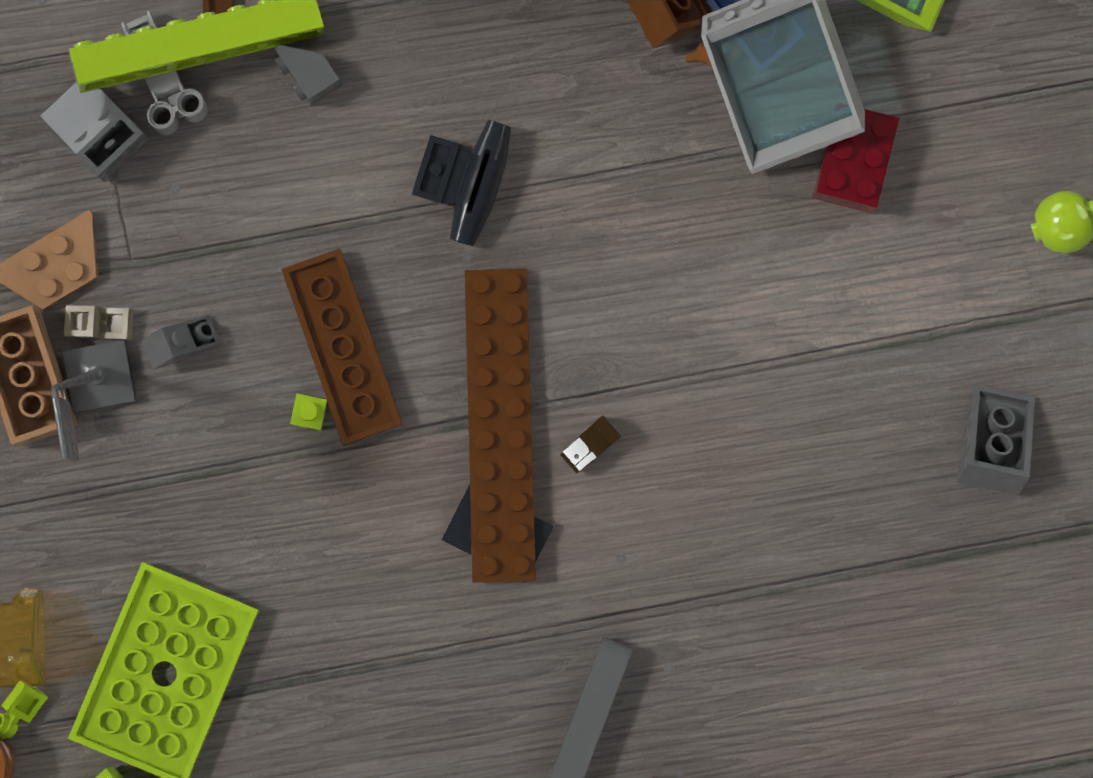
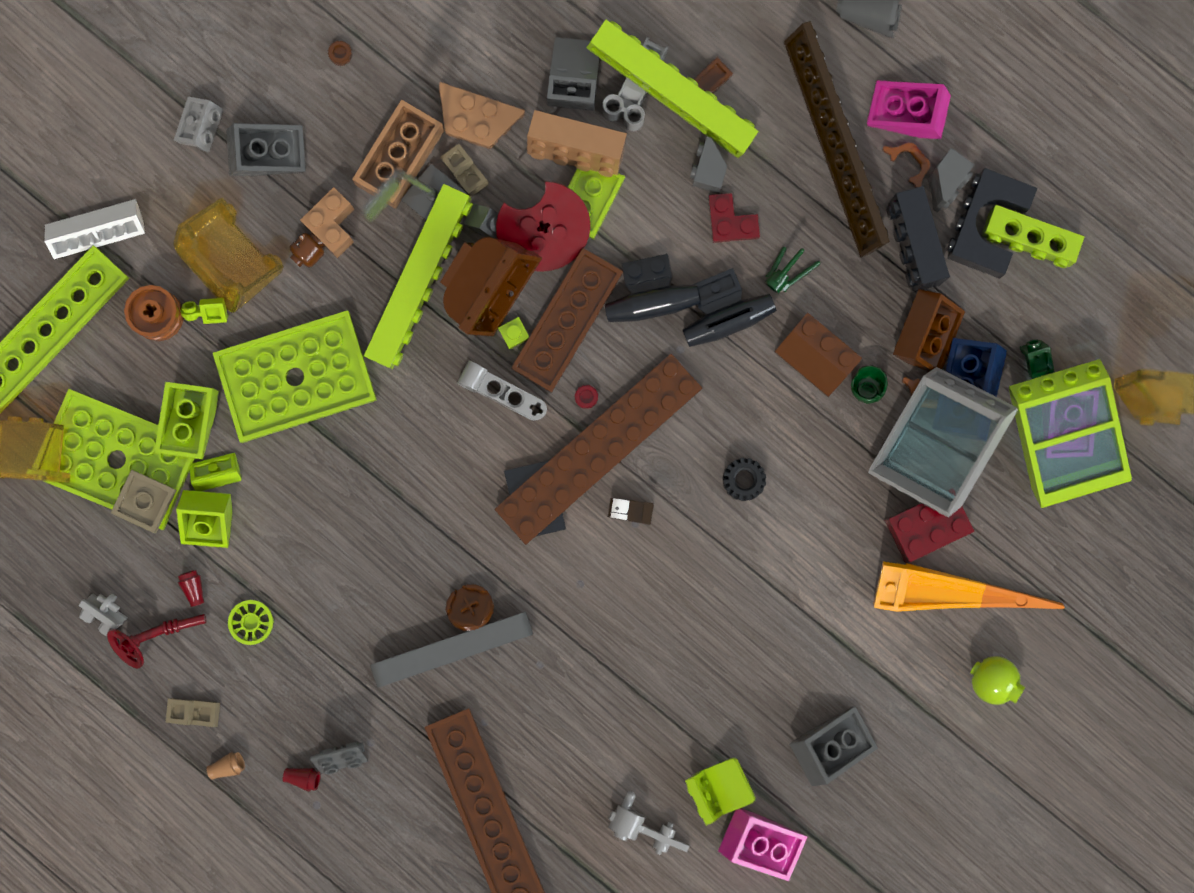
camera: 45 degrees right, 0 degrees up
(29, 510) = (324, 222): none -> medium nougat brick
(44, 552) = (306, 250): none -> reddish brown head
(169, 186) = (575, 143): none -> medium nougat brick
(169, 461) = (418, 277): none -> lime brick
(231, 401) = (482, 283): none -> reddish brown container
(234, 220) = (597, 194): none -> lime tile
(235, 292) = (551, 228): none -> dark red piece
(325, 489) = (476, 379): none -> light grey piece
(380, 105) = (728, 227): none -> dark red plate
(385, 238) = (651, 292): none -> black plate
(436, 393) = (586, 396): none -> dark red tile
(480, 100) = (778, 280): none -> dark green plant
(551, 690) = (469, 607): none -> reddish brown tile
(591, 123) = (818, 355): none -> reddish brown slope
(654, 284) = (757, 472): none -> black tyre
(664, 97) = (869, 384): none -> dark green hair
(904, 712) = (628, 823): none -> light grey piece
(912, 218) = (920, 588): none -> light orange plate
(946, 590) = (720, 790): none -> lime bracket
(1035, 594) = (762, 844): none -> dark pink slope

